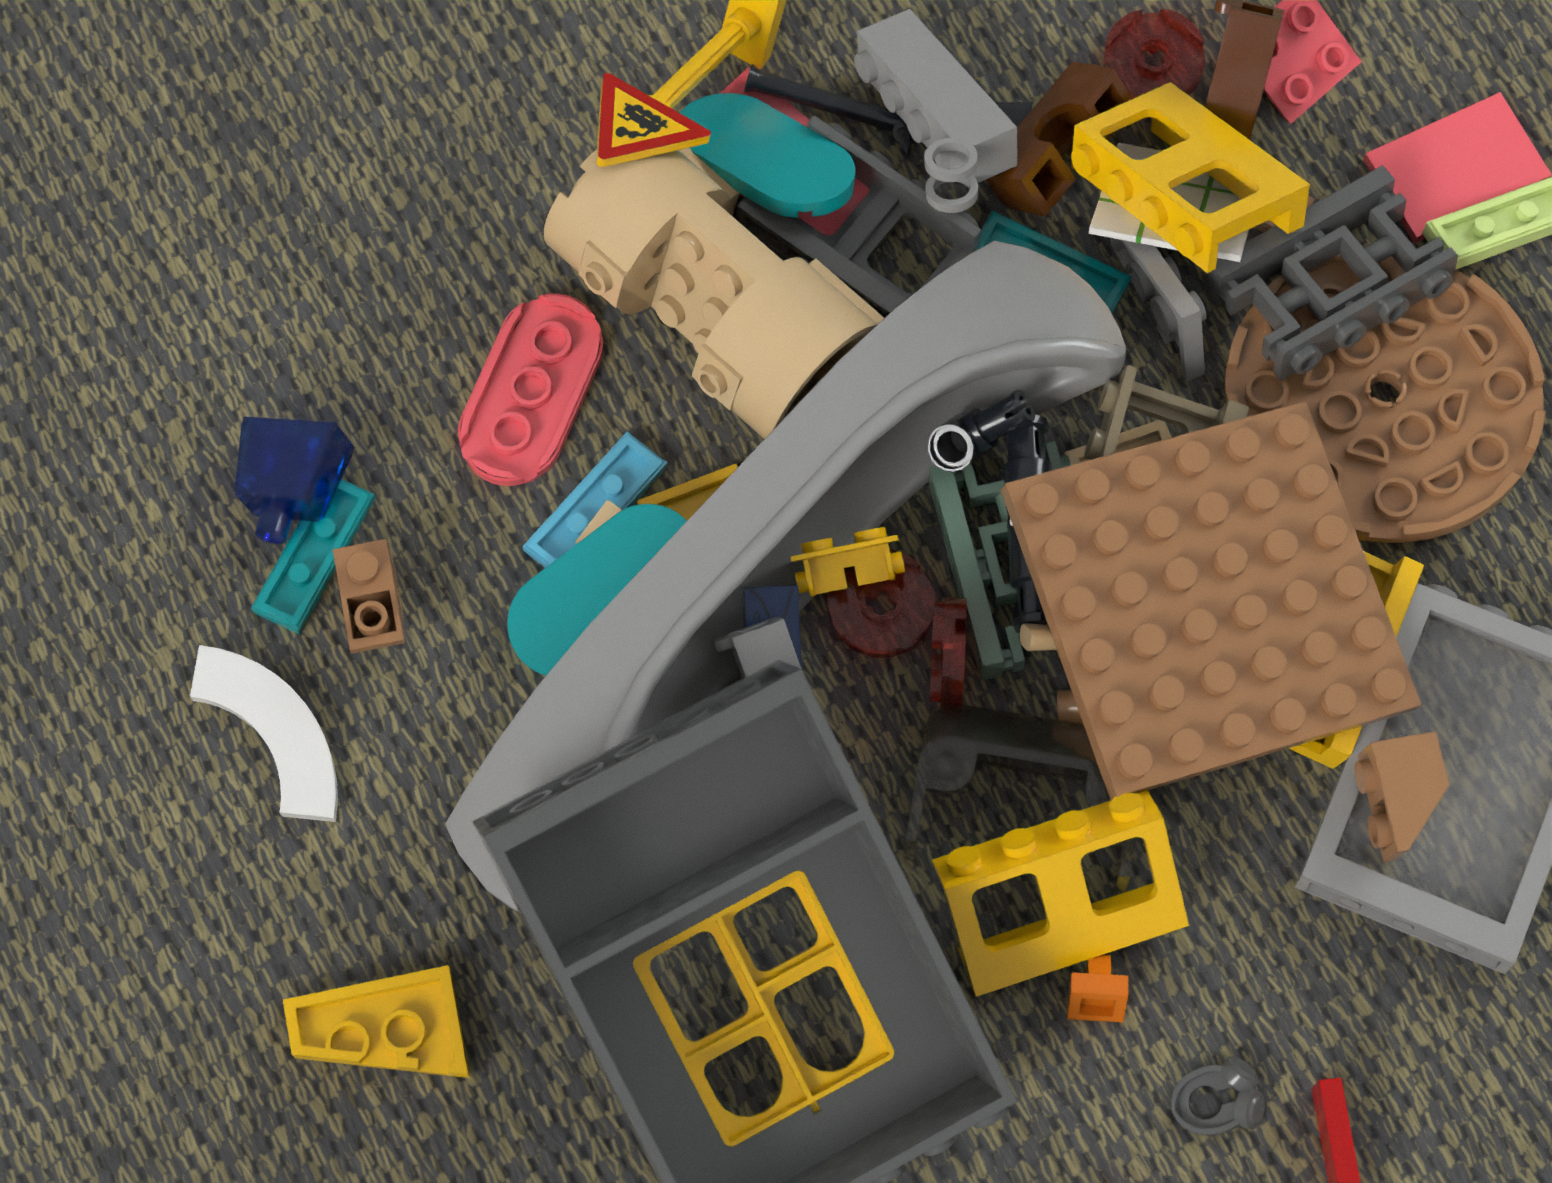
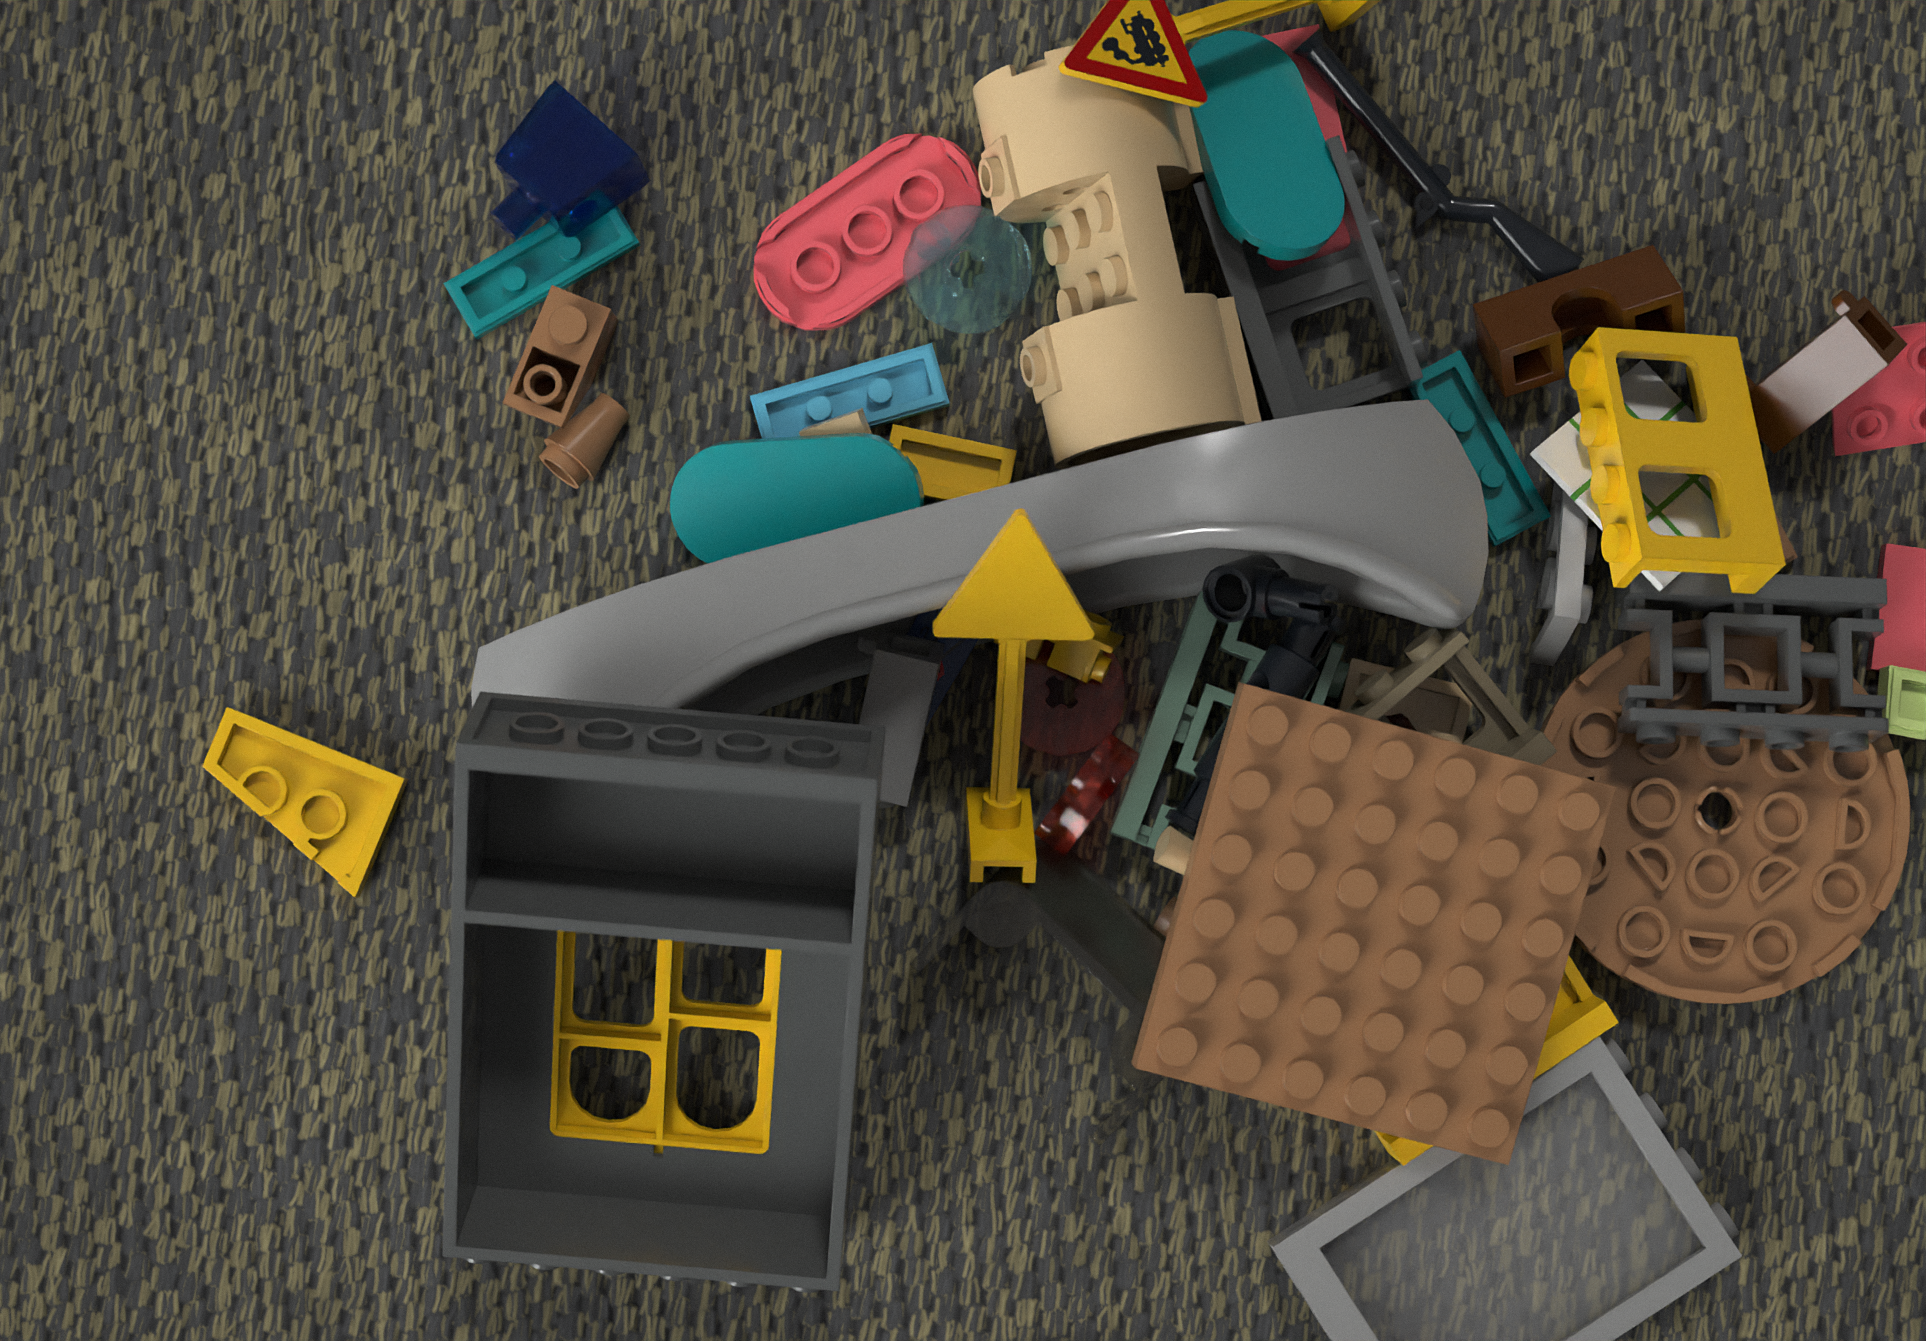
camera: 30 degrees right, 15 degrees up
(282, 721) = (401, 418): white tile -> none
(424, 655) = (584, 442): none -> medium nougat cone
(612, 393) = (994, 292): none -> clear light blue plate
(807, 521) = (1014, 598): none -> yellow piece
(938, 104) = (1476, 210): light grey hinge -> none
(1073, 925) = (1017, 1141): yellow window -> none
(1097, 993) = (1001, 1219): orange tile -> none
(1154, 32) = (1762, 262): clear red plate -> none
(1403, 788) = (1429, 1238): medium nougat slope -> none

